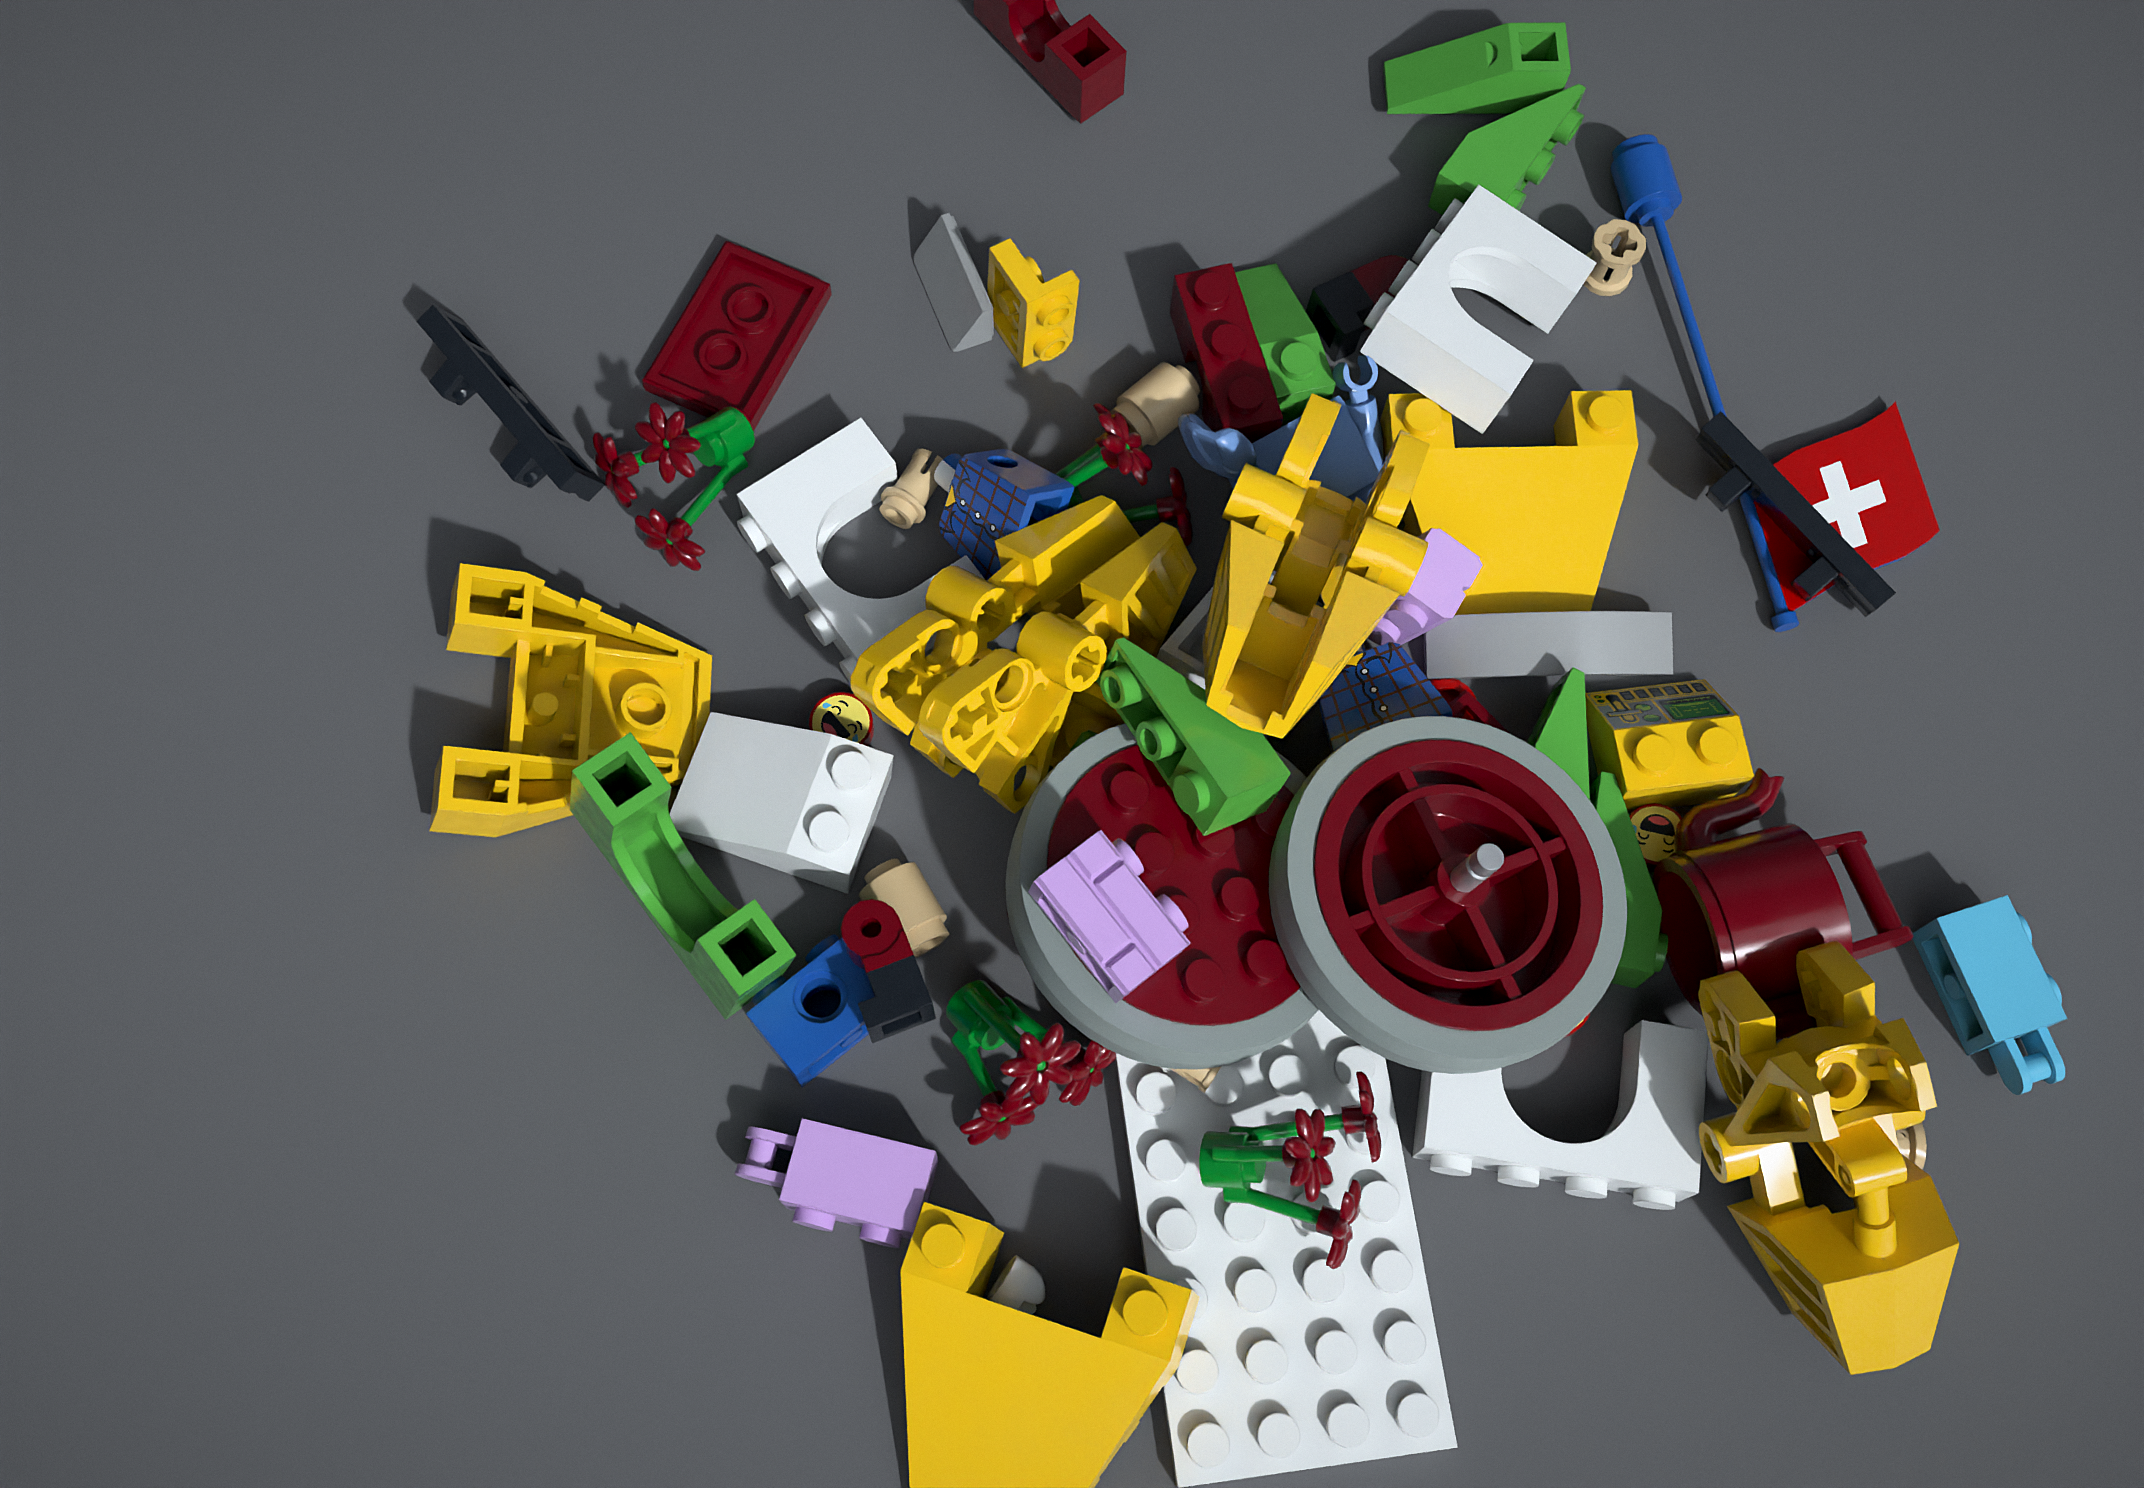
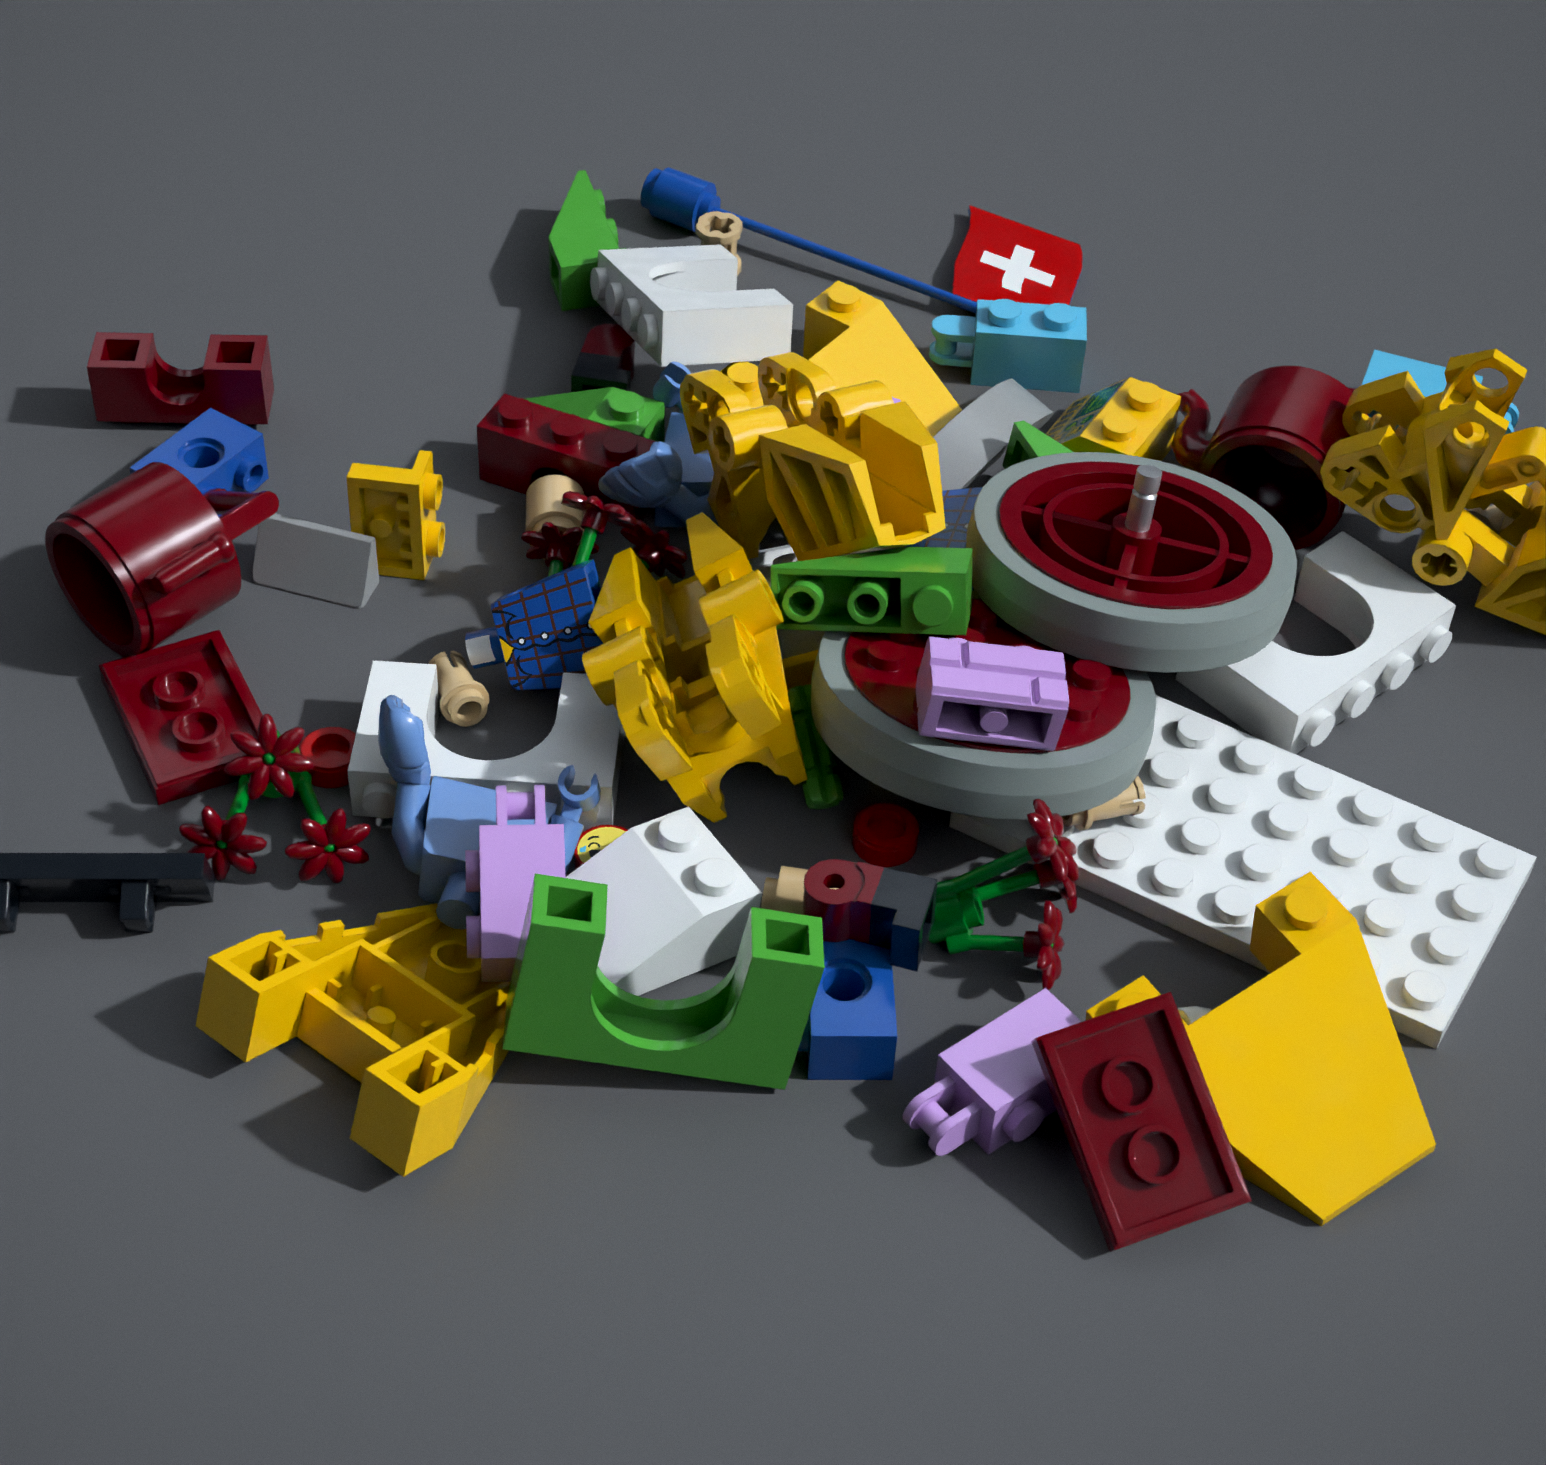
camera: 50 degrees left, 25 degrees down
(700, 705) = (504, 877): none -> lavender brick
(747, 621) = (443, 819): none -> medium blue torso
(773, 451) = (331, 753): none -> red tile
(823, 184) = (151, 555): none -> dark red piece
(857, 1314) = (1140, 1121): none -> dark red tile
(990, 112) = (214, 454): none -> blue brick
(1239, 1158) = (1219, 811): plant -> none
(1481, 72) = (506, 210): bright green slope -> none
(1717, 584) = (1016, 340): none -> medium azure brick
(1831, 554) = (1001, 275): black hinge -> none

